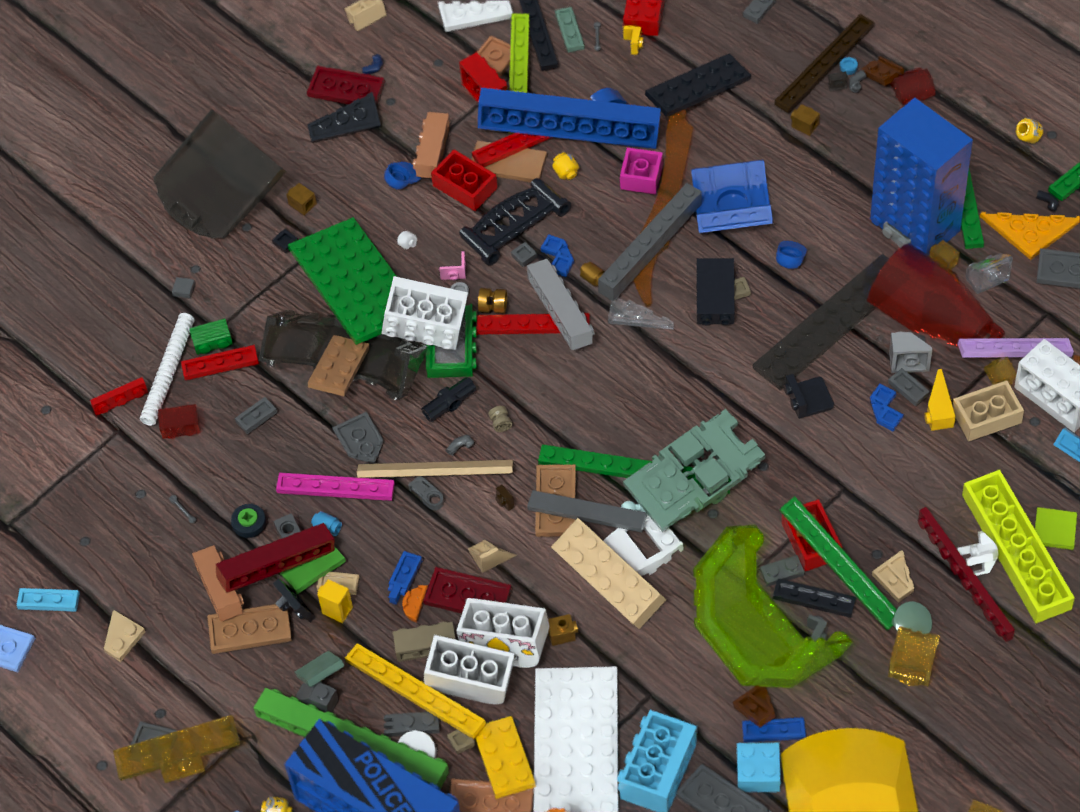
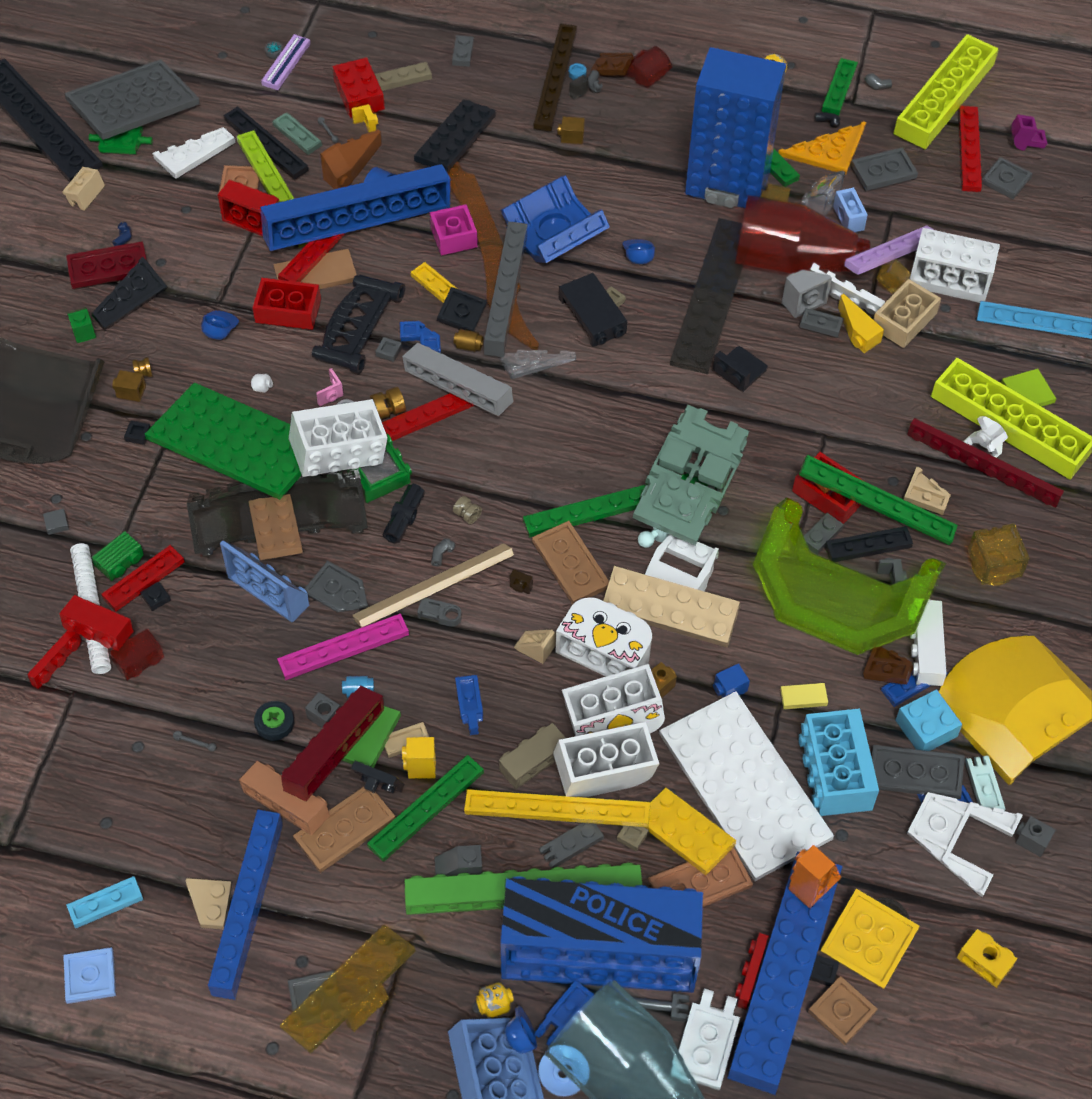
camera: 35 degrees left, 0 degrees up
(143, 650) = (245, 905): none -> blue brick
(158, 382) = (96, 623): none -> red brick
(221, 381) = (155, 596): none -> black plate
(255, 415) = (215, 613): dark grey plate -> none
(295, 130) = (81, 325): none -> green slope
(305, 406) = (264, 582): none -> medium blue slope
(318, 642) = (425, 808): none -> green plate
(319, 668) = (447, 833): sand green tile -> none
(320, 187) = (143, 367): none -> pearl gold wheel
(413, 602) = (495, 724): orange tile -> none
(420, 741) = (593, 857): white tile -> none
(432, 143) = (232, 283): nougat brick -> none
(451, 589) = (539, 690): dark red plate -> none
(537, 573) = (603, 637): none -> white brick
(565, 166) = (376, 254): yellow head -> none
(587, 511) = (607, 558): dark grey tile -> none
(590, 73) = (345, 161): none -> dark orange wedge
(601, 214) = (432, 281): none -> yellow tile
(604, 245) = (461, 310): none -> black tile
(618, 656) = (731, 681): none -> blue brick
(673, 697) = (804, 696): none -> light yellow tile
(692, 11) = (404, 76): none -> dark tan plate
(804, 704) = (929, 647): none -> white brick
(883, 414) = (813, 355): blue tile -> none
(913, 616) = (966, 521): sand green dish -> none
(947, 367) = (860, 298): none -> white wing
(1003, 295) = (850, 210): none -> light blue brick

